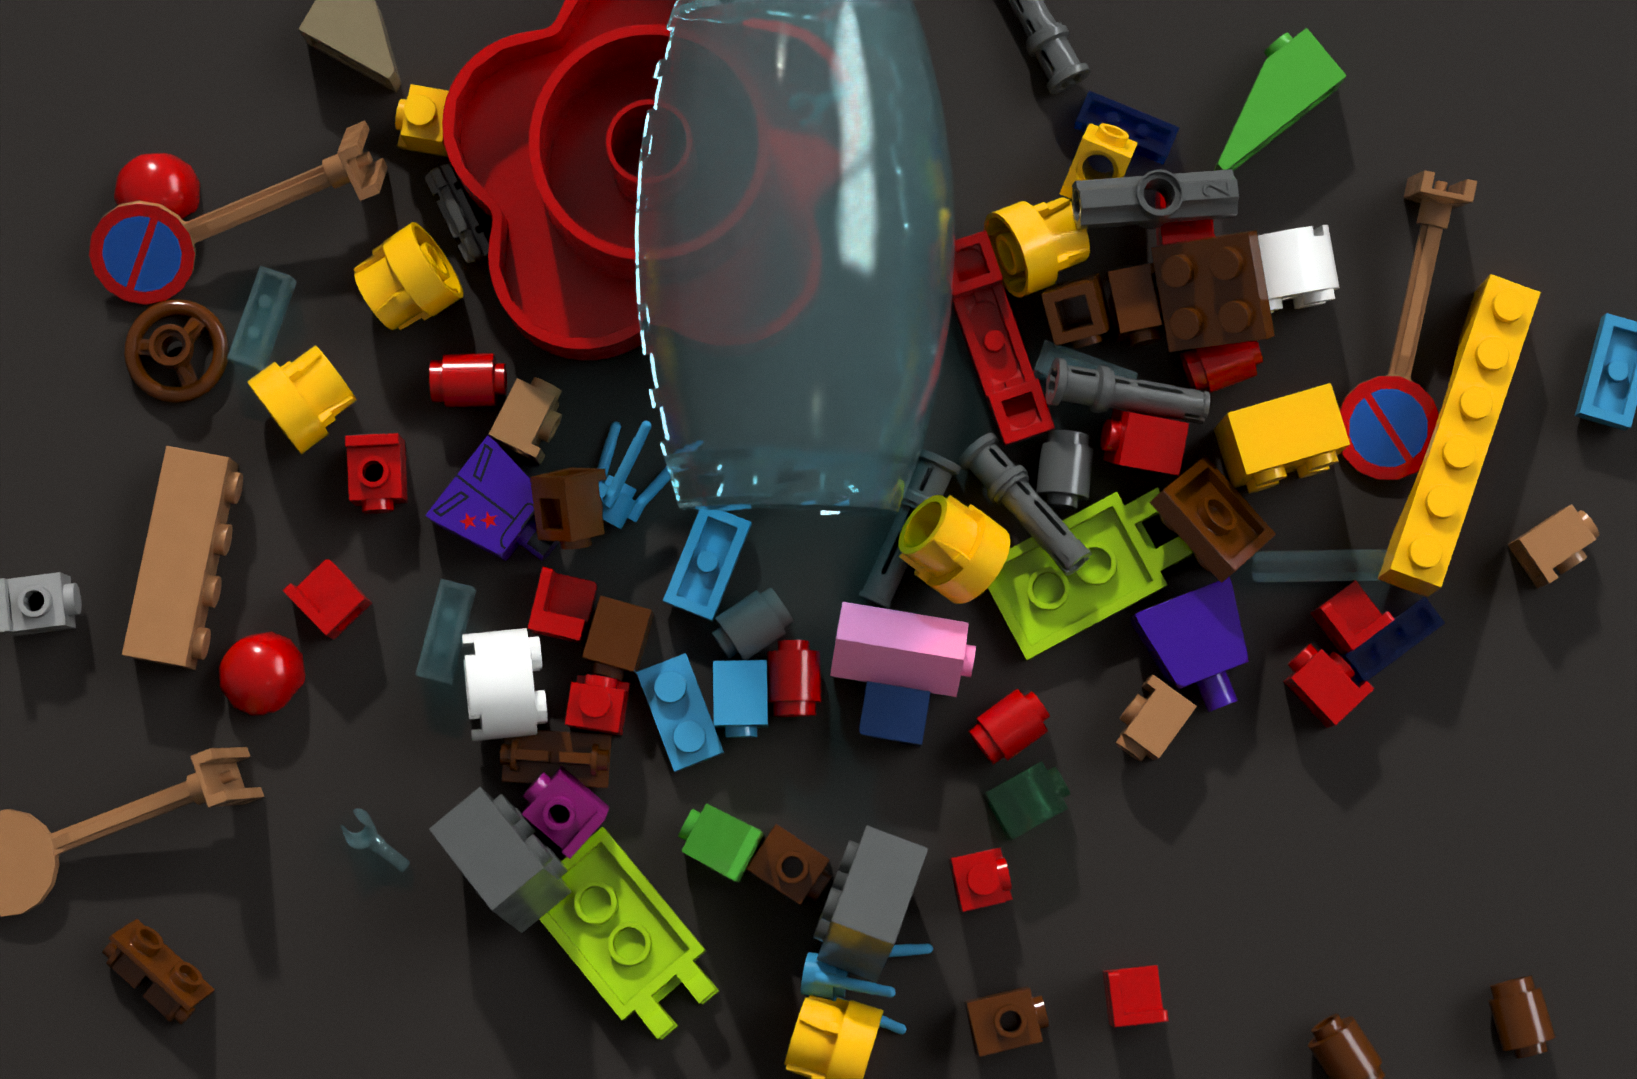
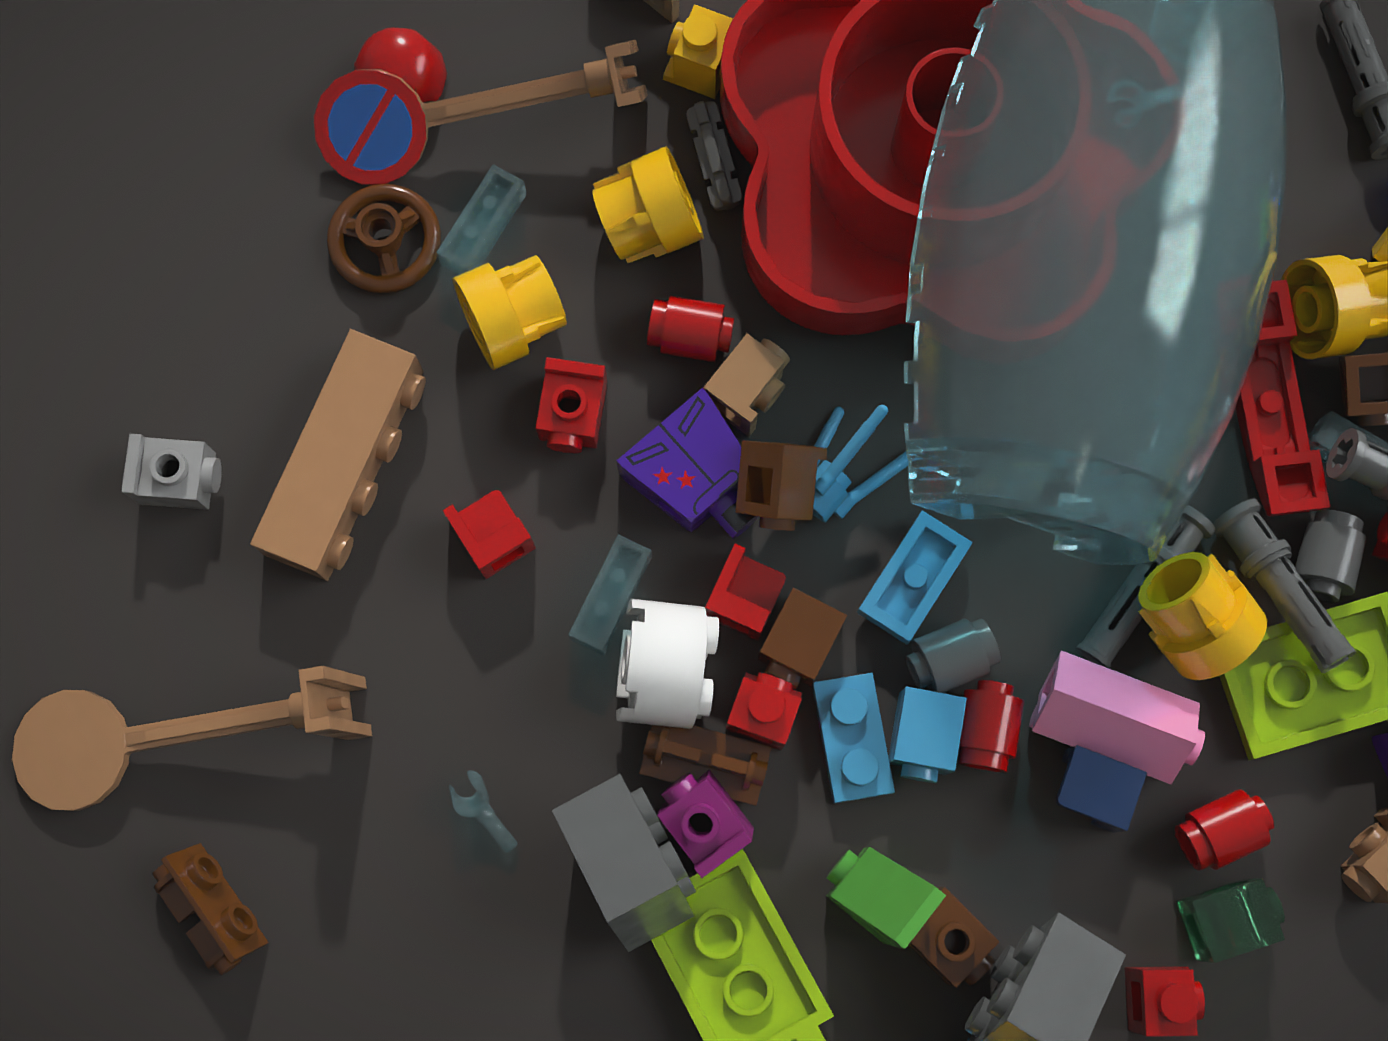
camera: 10 degrees right, 5 degrees down
(261, 673) = (398, 599): red hair -> none

